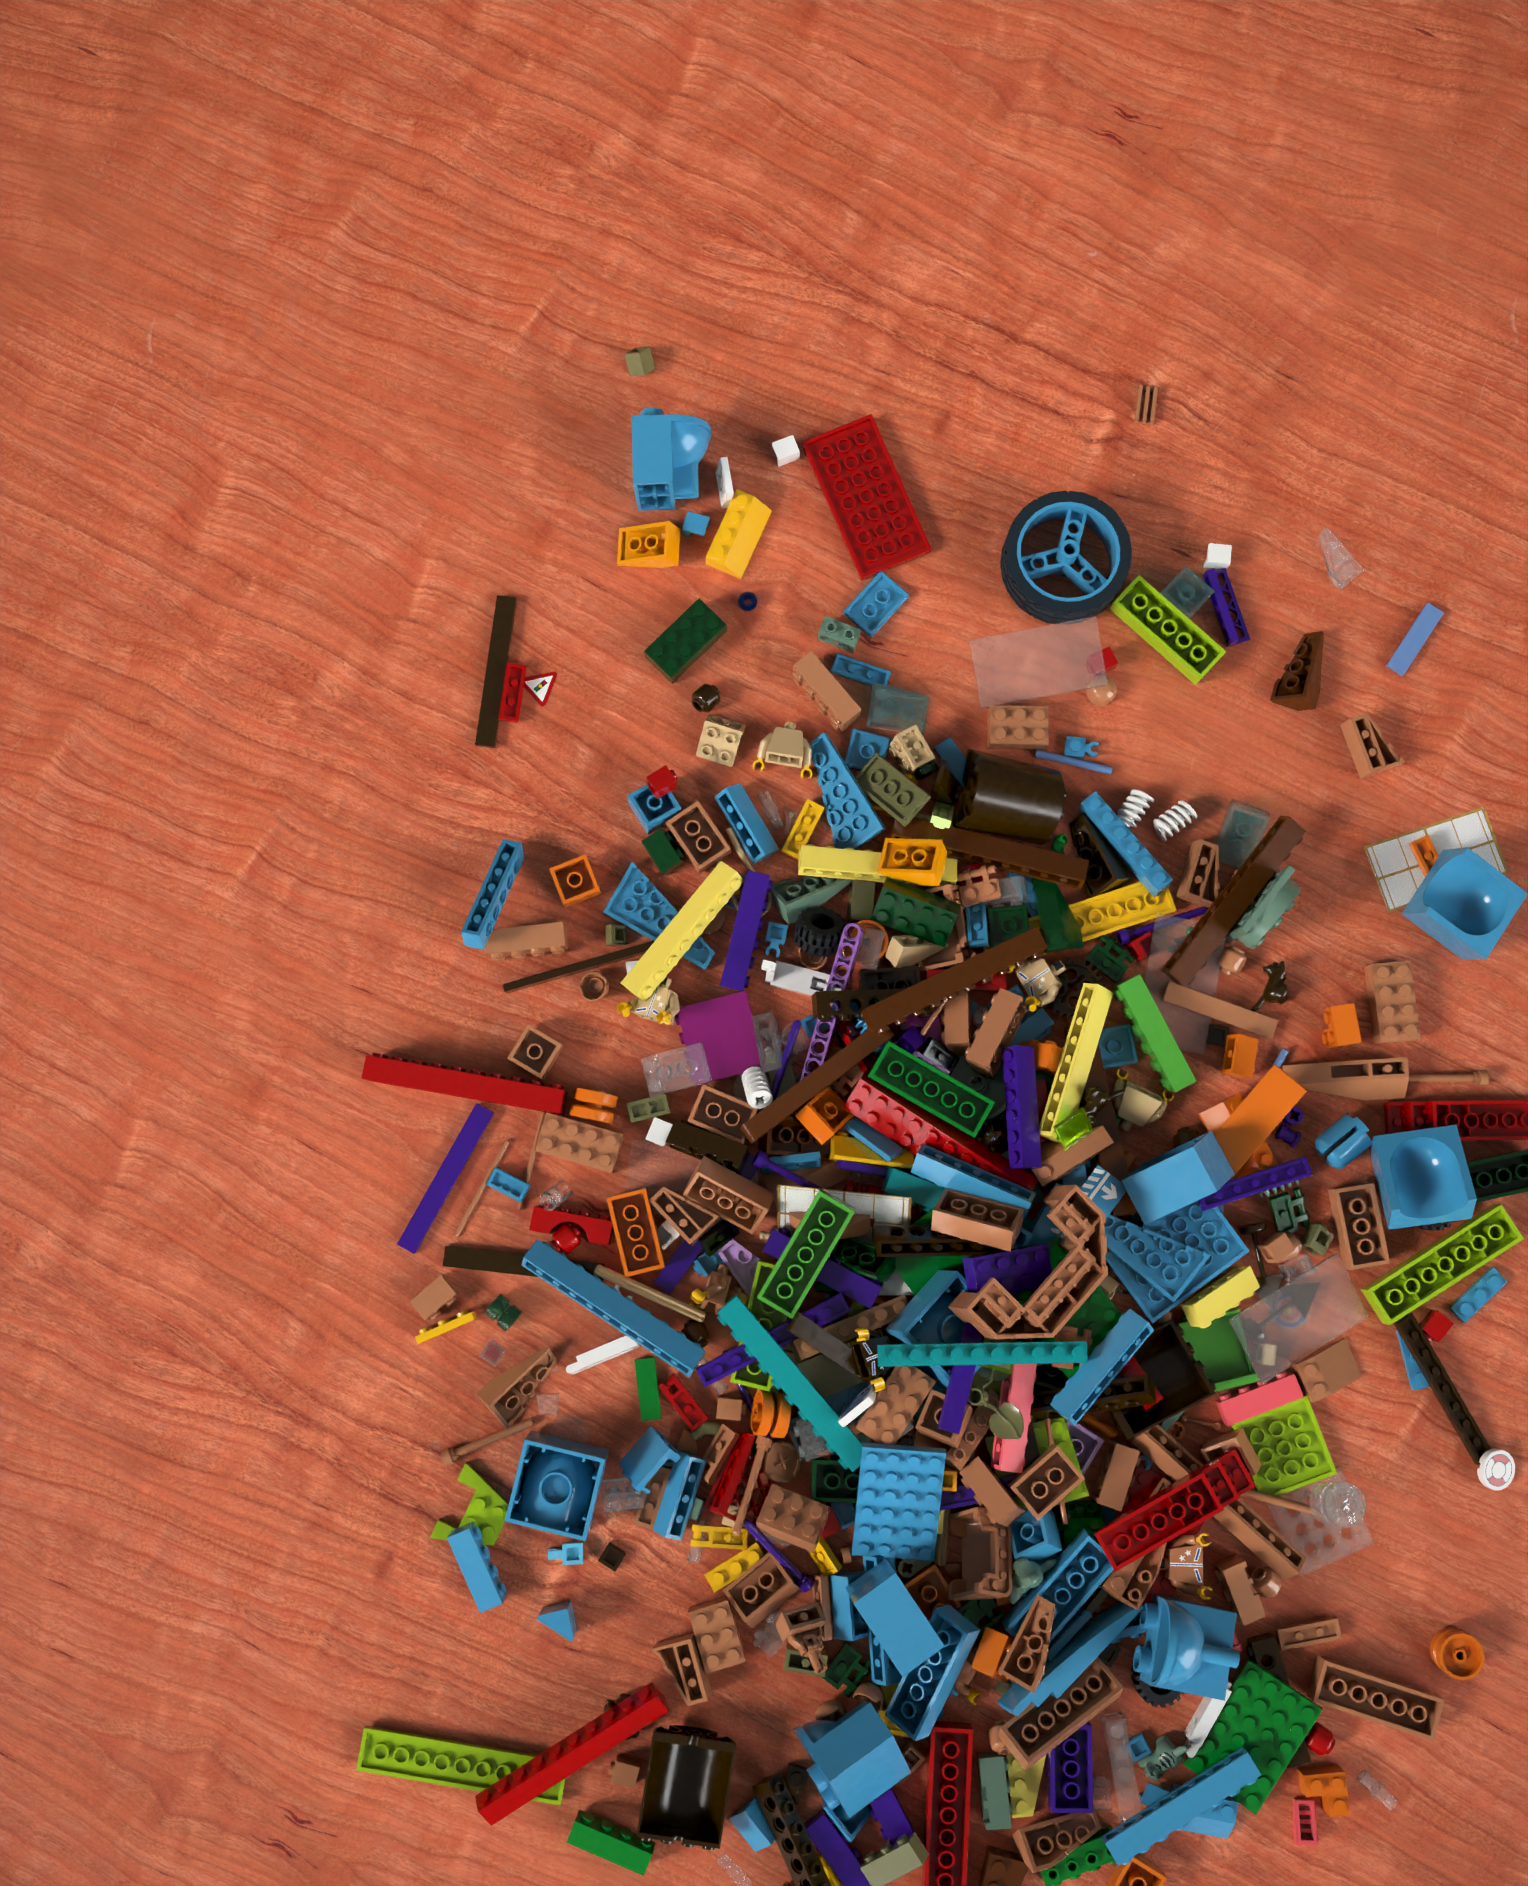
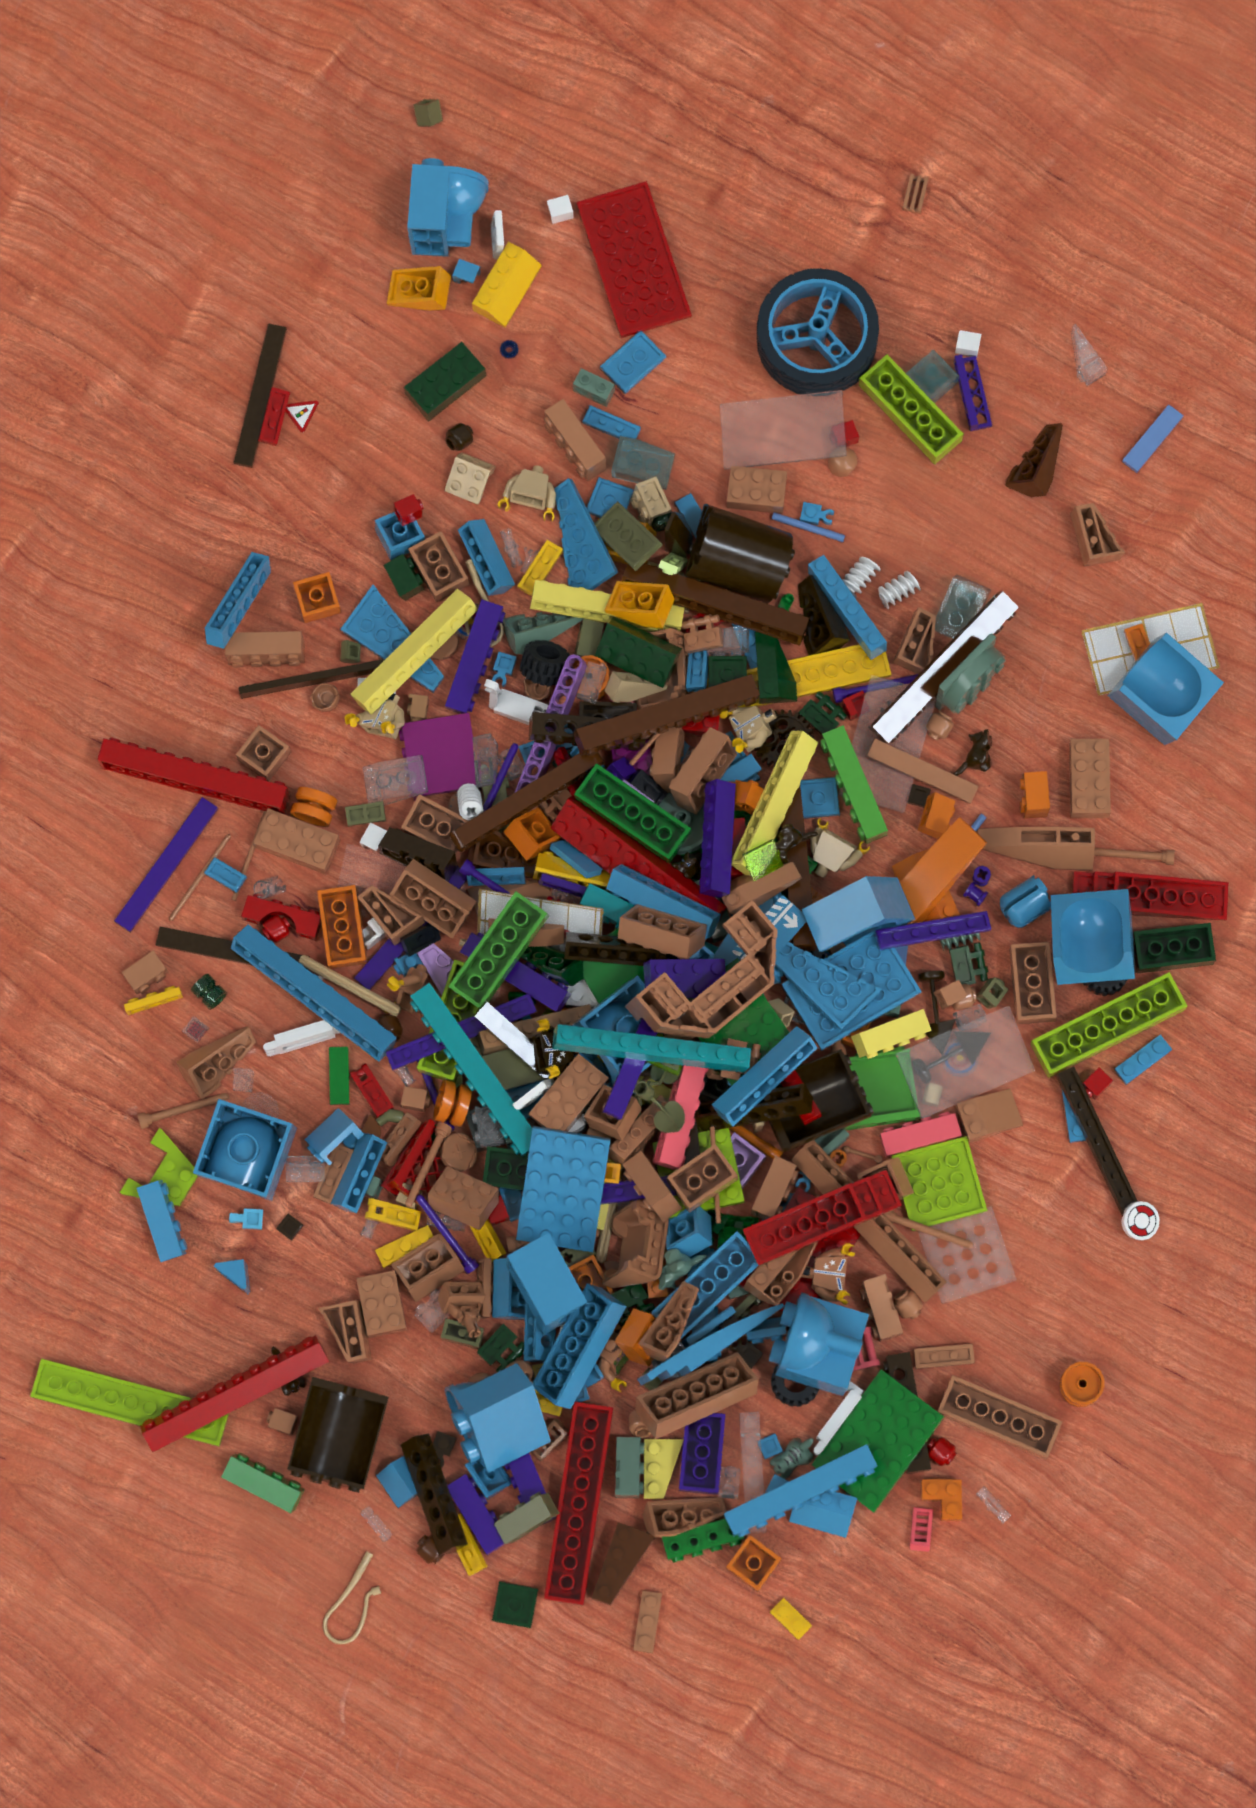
camera: 10 degrees right, 5 degrees down
(692, 989) = (418, 708): none -> medium nougat brick
(1327, 1506) = (970, 1235): clear wheel -> none

